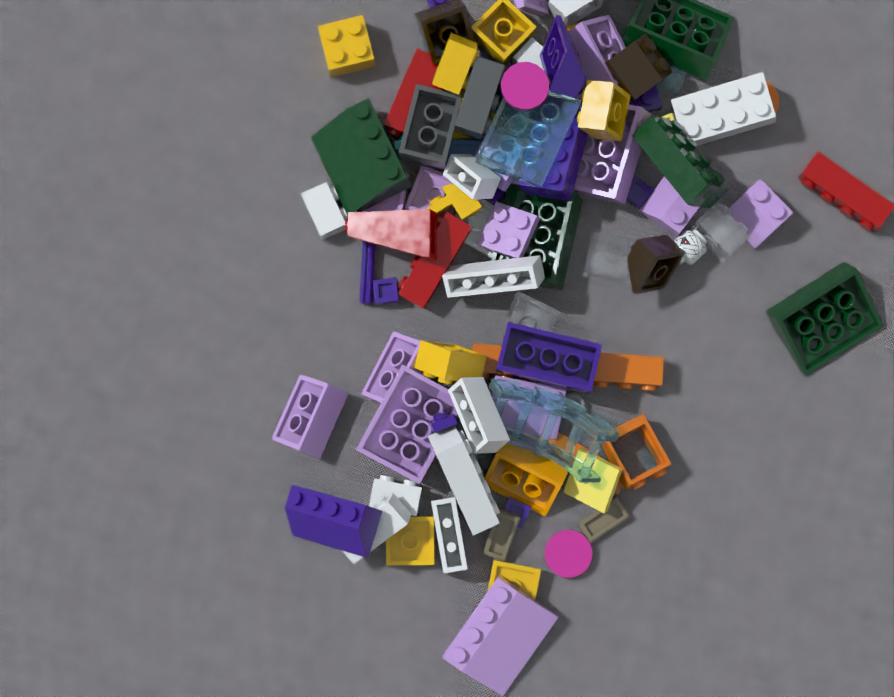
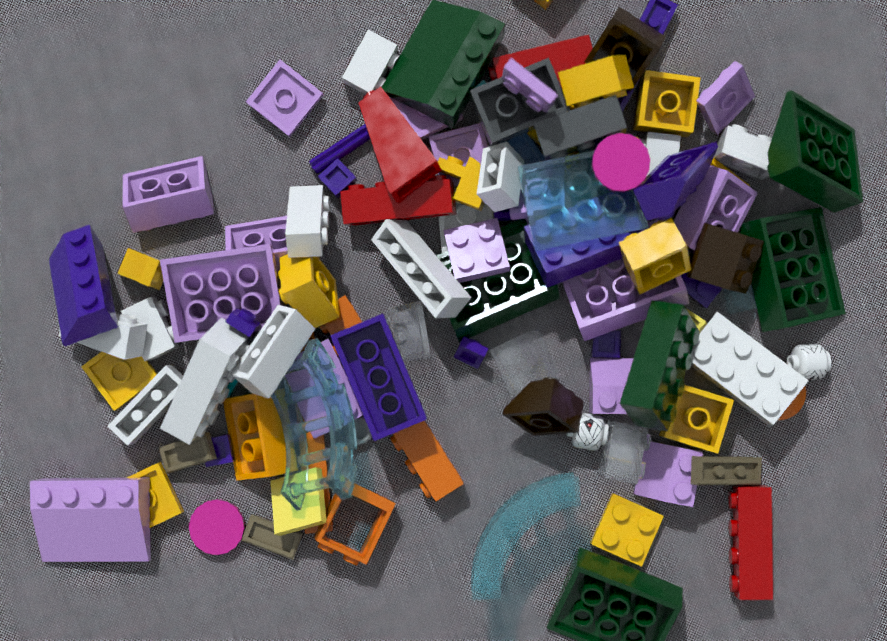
camera: 50 degrees right, 5 degrees up
(303, 287) = (284, 98): none -> lavender plate
(349, 471) = (142, 269): none -> yellow brick
(403, 330) = (307, 221): none -> white brick
(422, 110) = (520, 80): none -> lavender plate
(575, 287) = (471, 352): none -> dark purple plate
(714, 343) = (511, 522): none -> clear light blue fence
(737, 164) = (700, 419): none -> yellow brick
(750, 62) = (810, 361): none -> white head
(776, 271) = (626, 529): none -> yellow plate
(784, 172) = (726, 470): none -> dark tan tile

